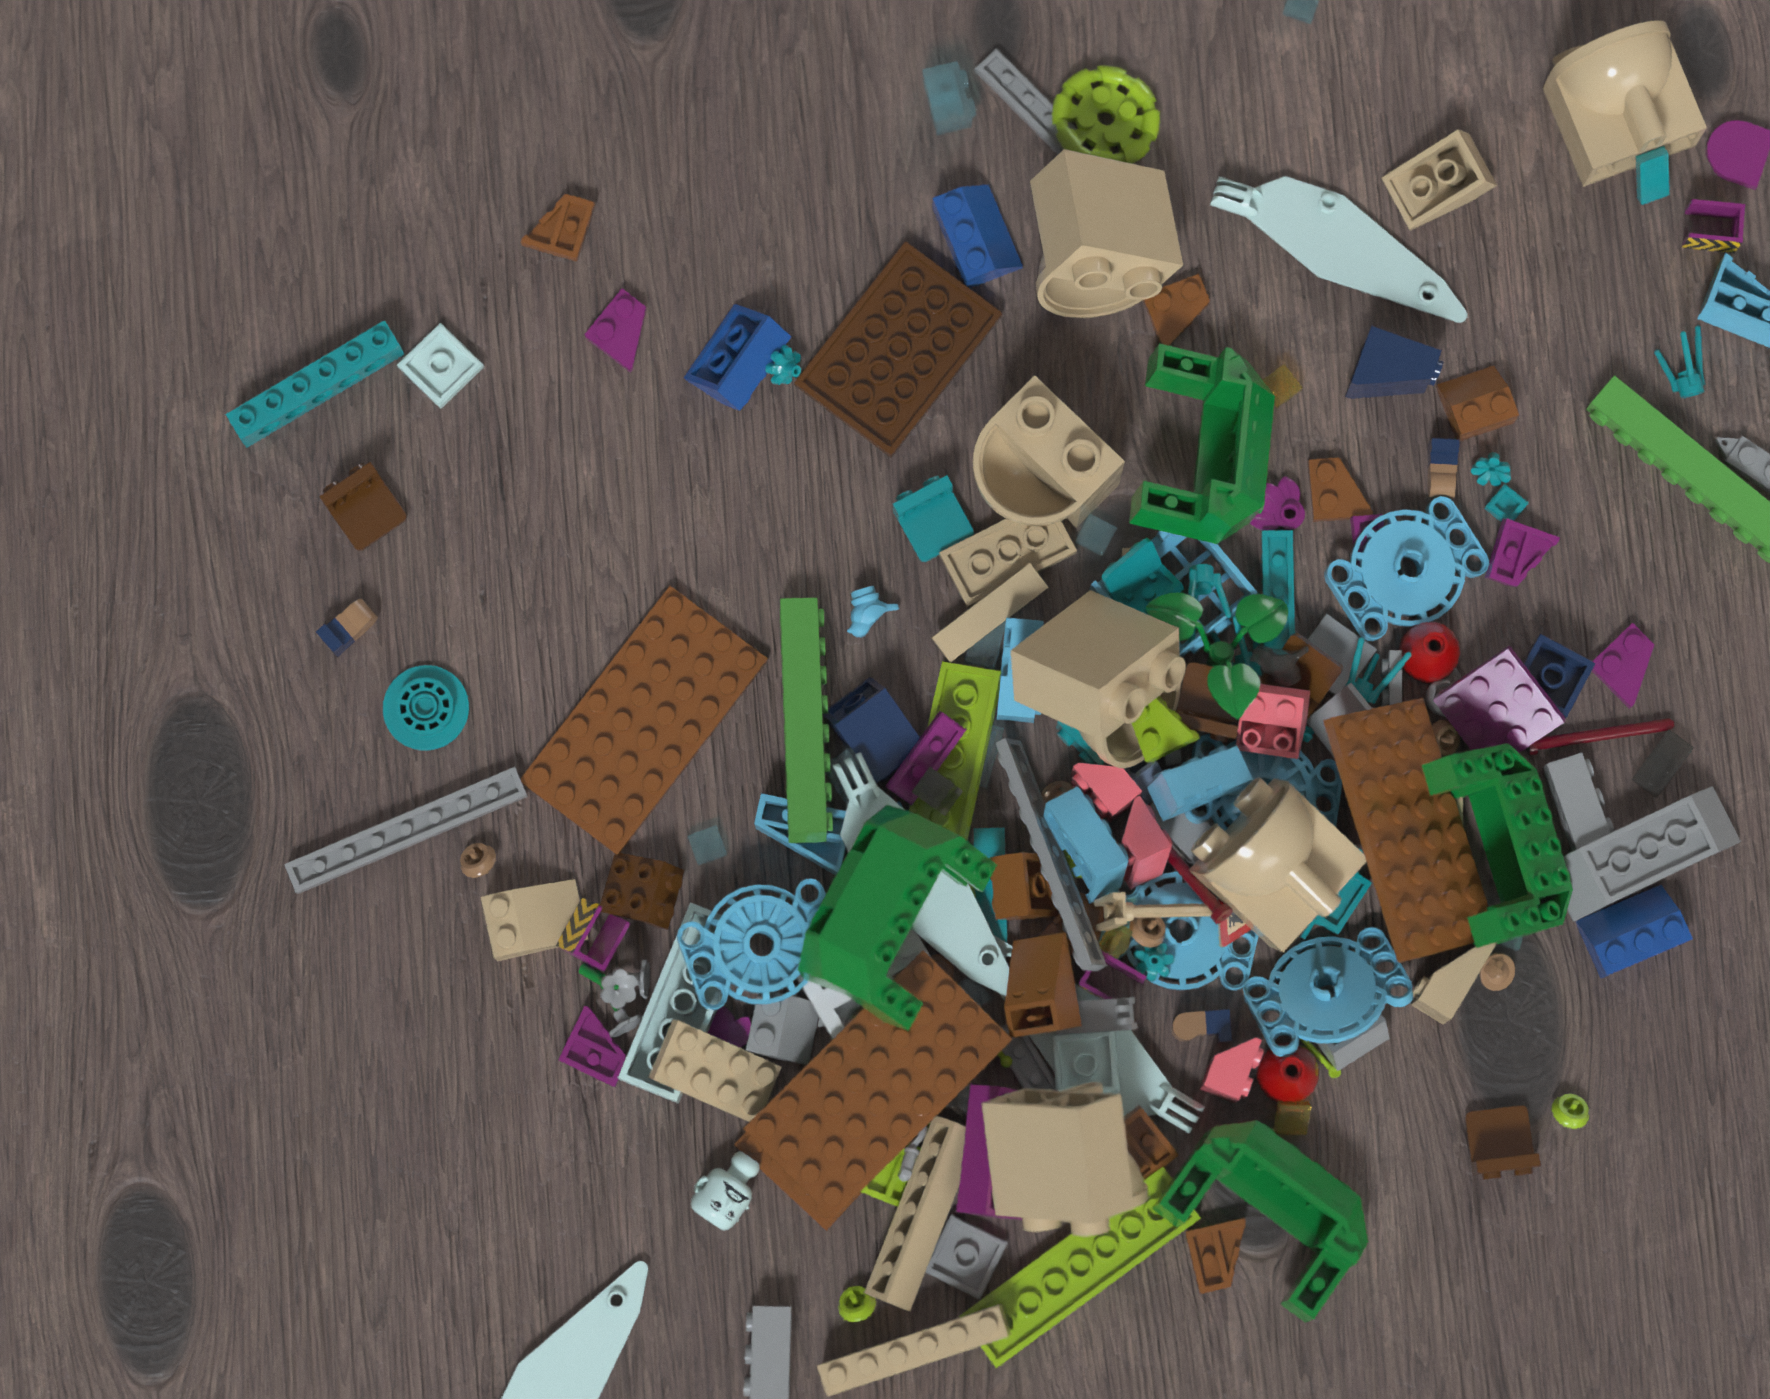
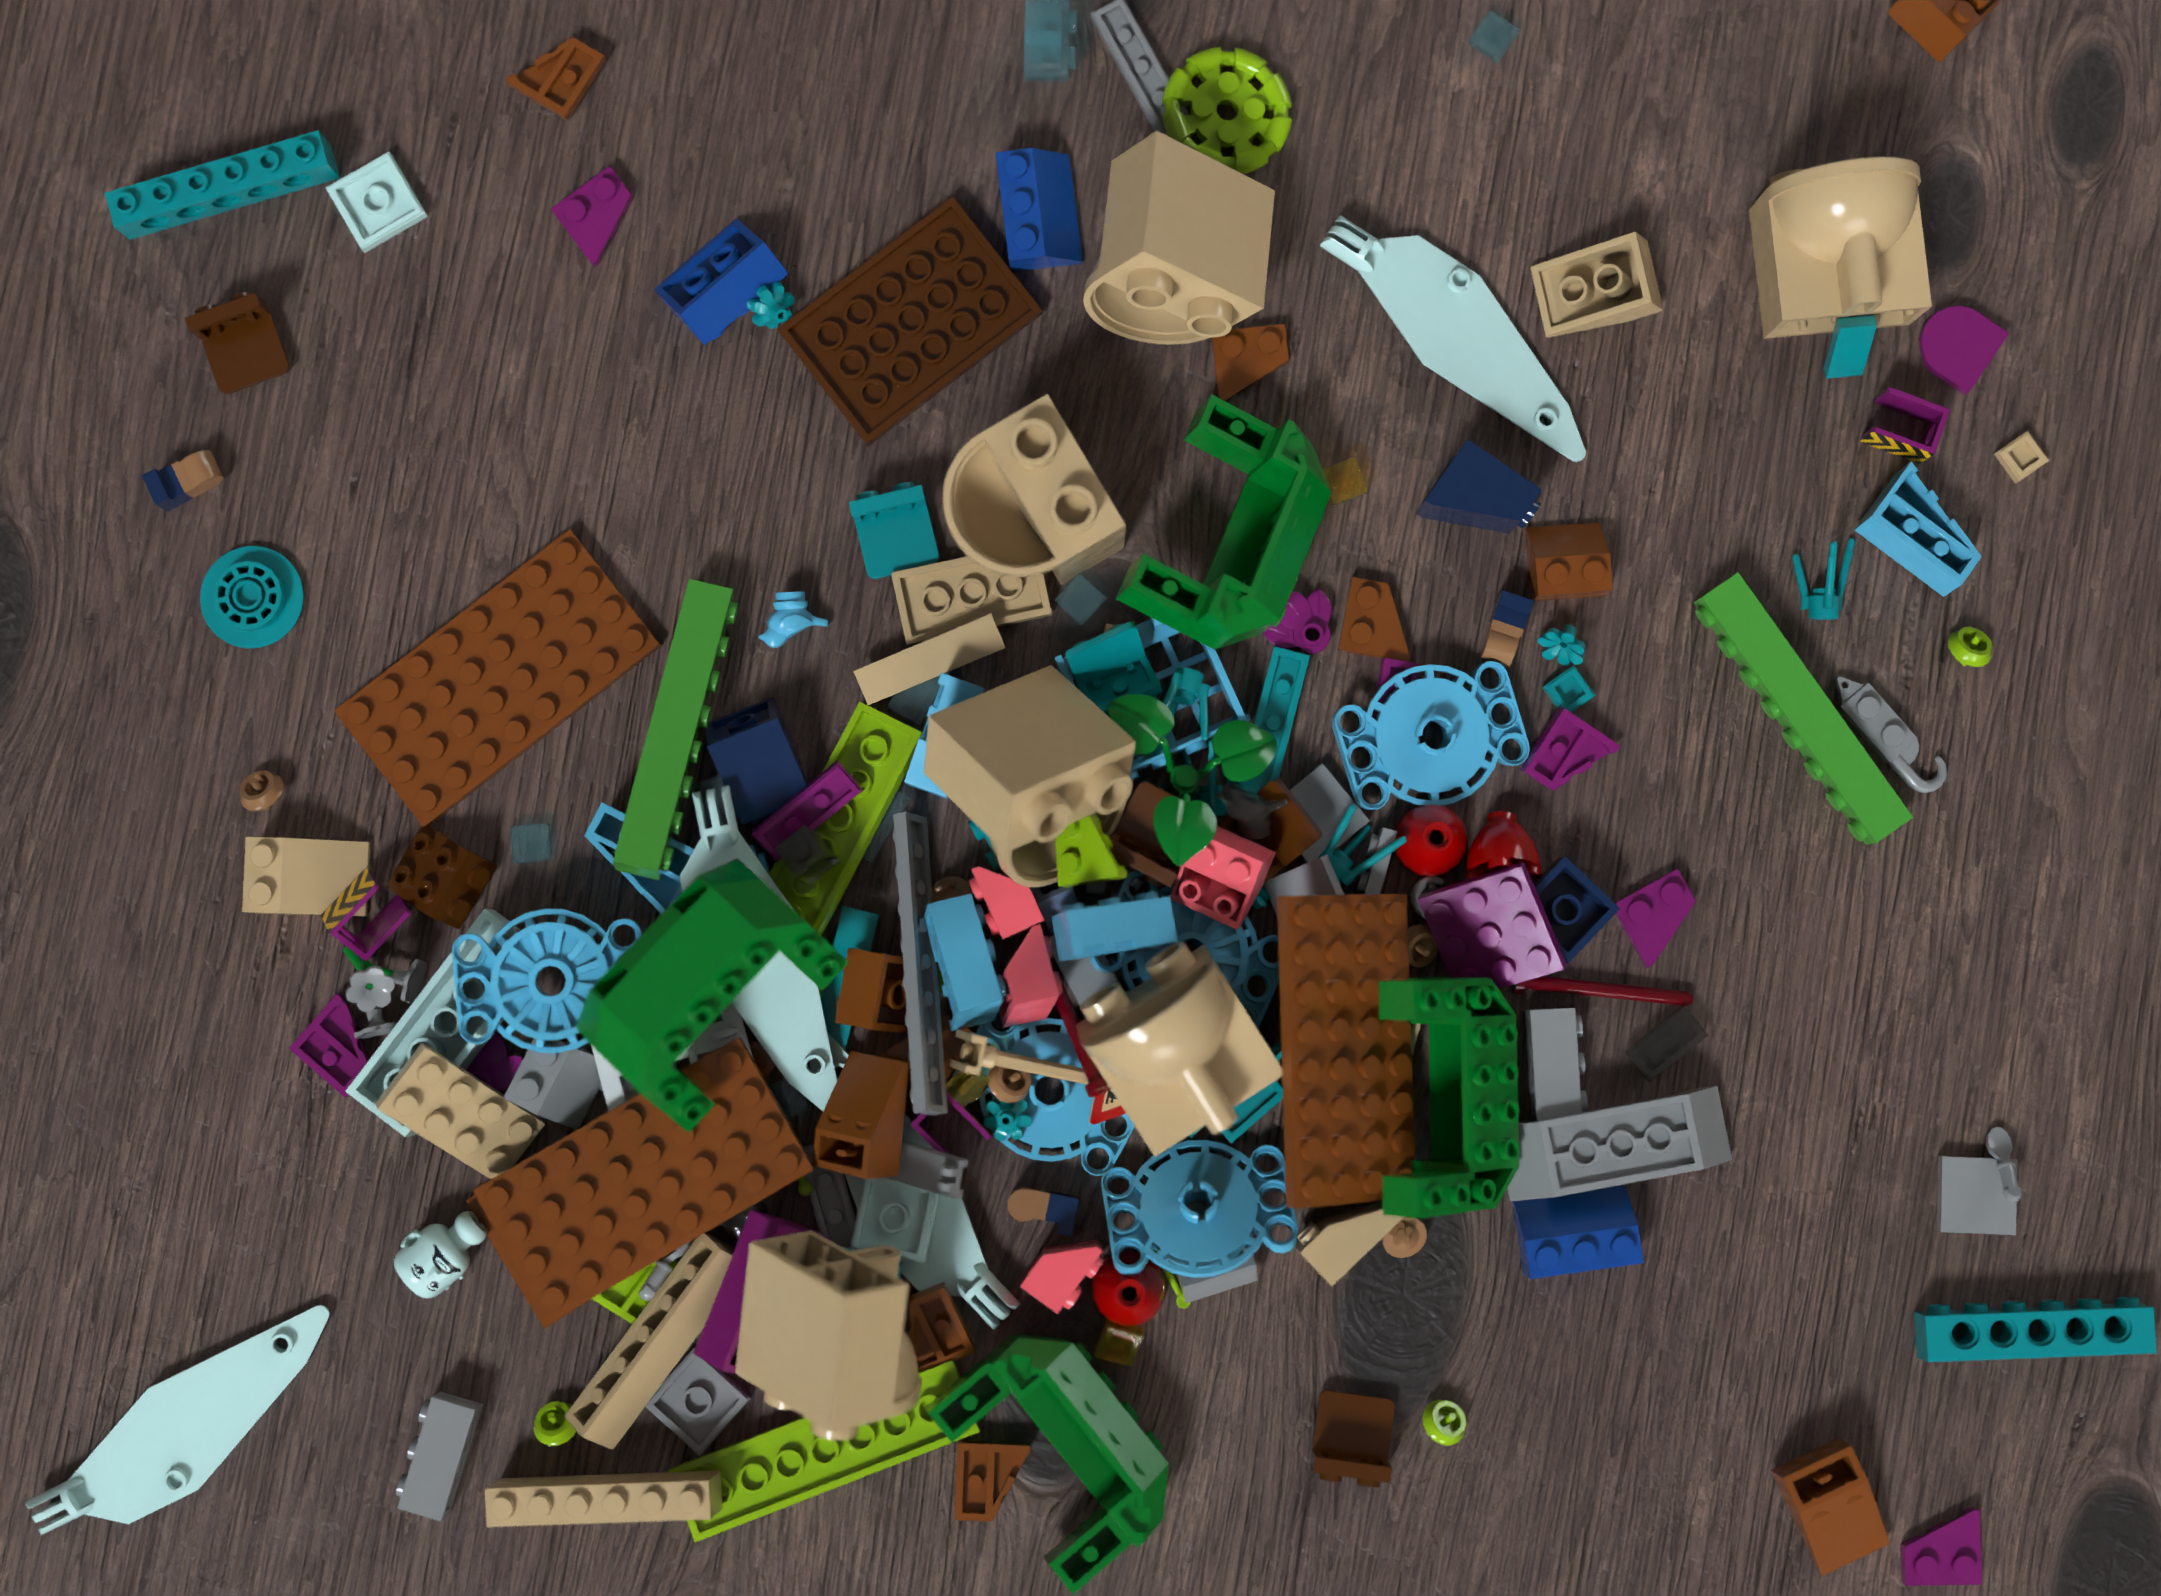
camera: 15 degrees right, 5 degrees up
(405, 830) = (188, 734): light grey plate -> none
(1486, 639) = (1501, 845): none -> red piece

